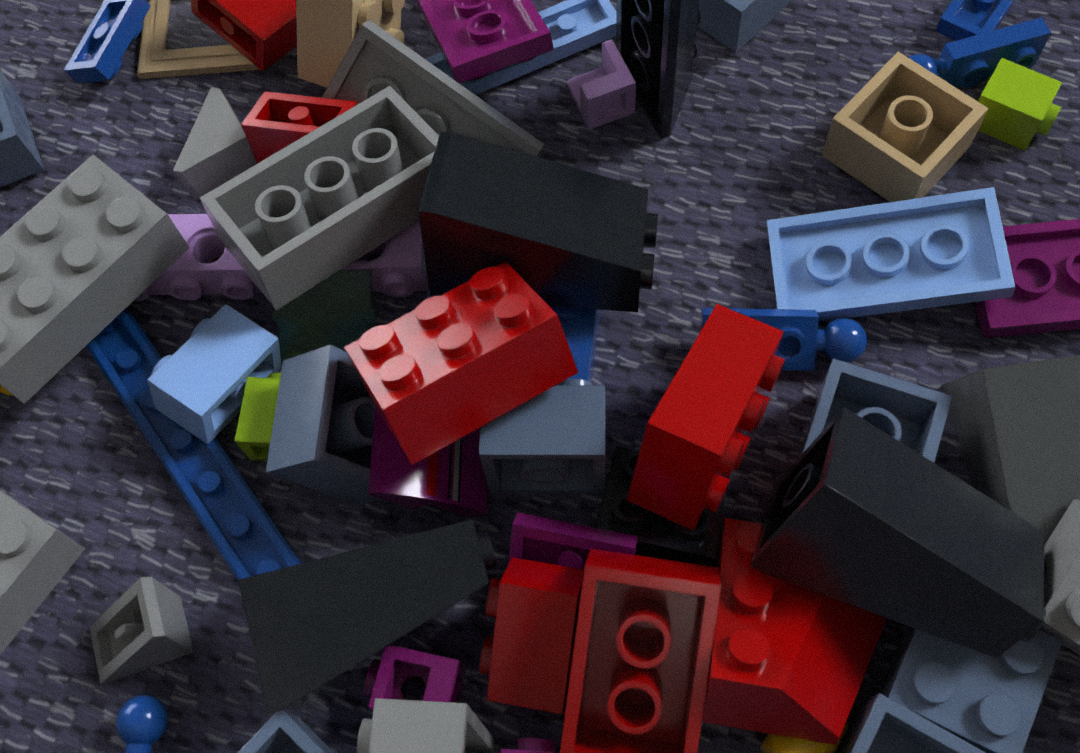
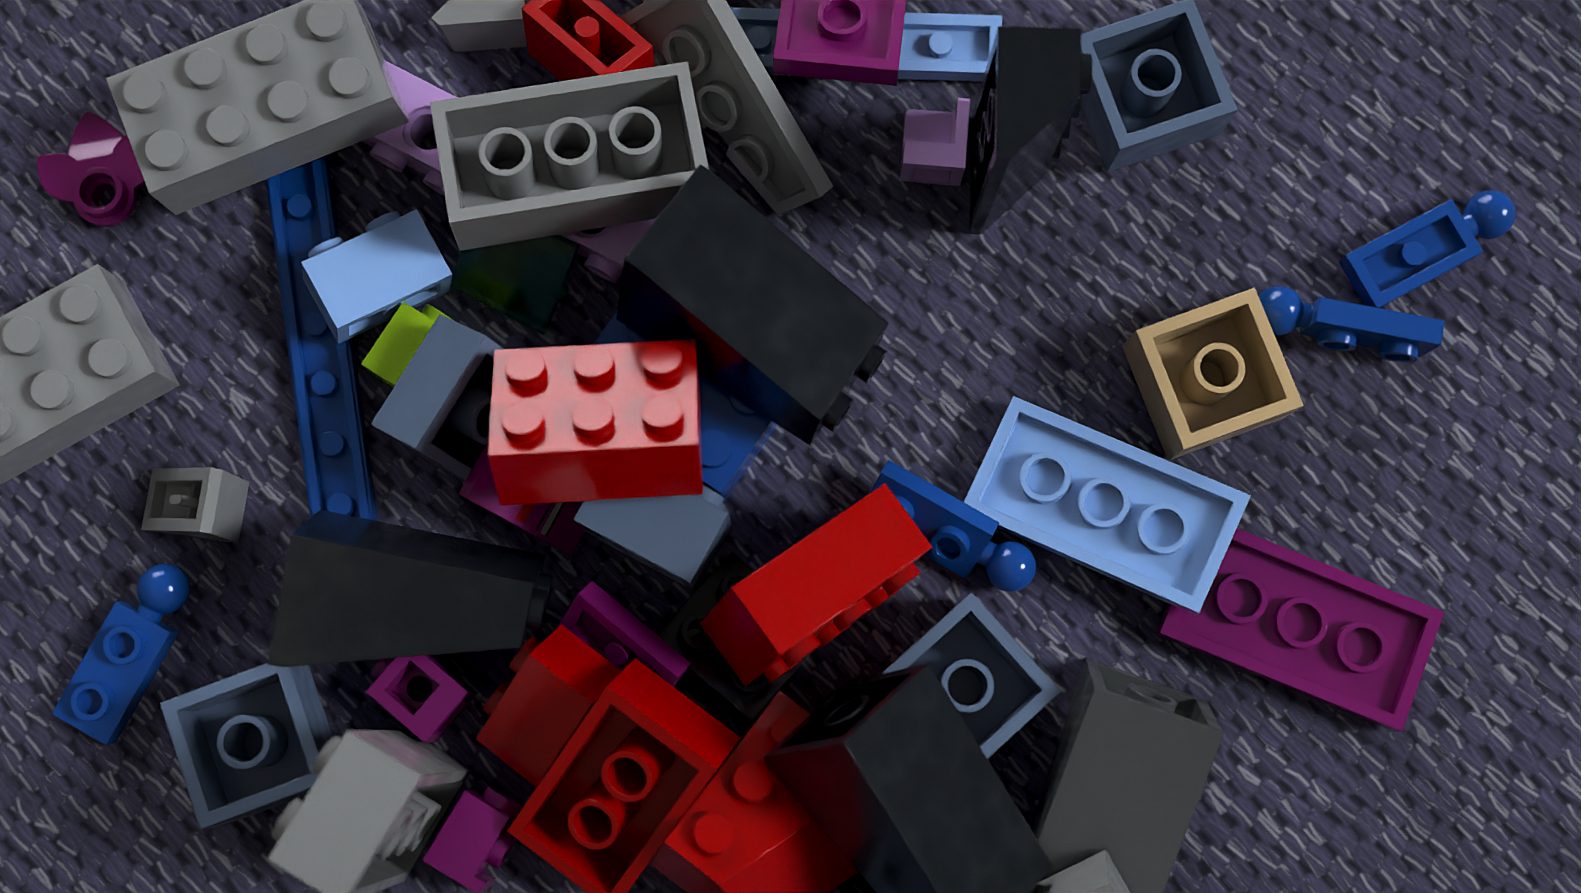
camera: 20 degrees right, 15 degrees up
(1018, 104) = (1356, 402): lime brick -> none

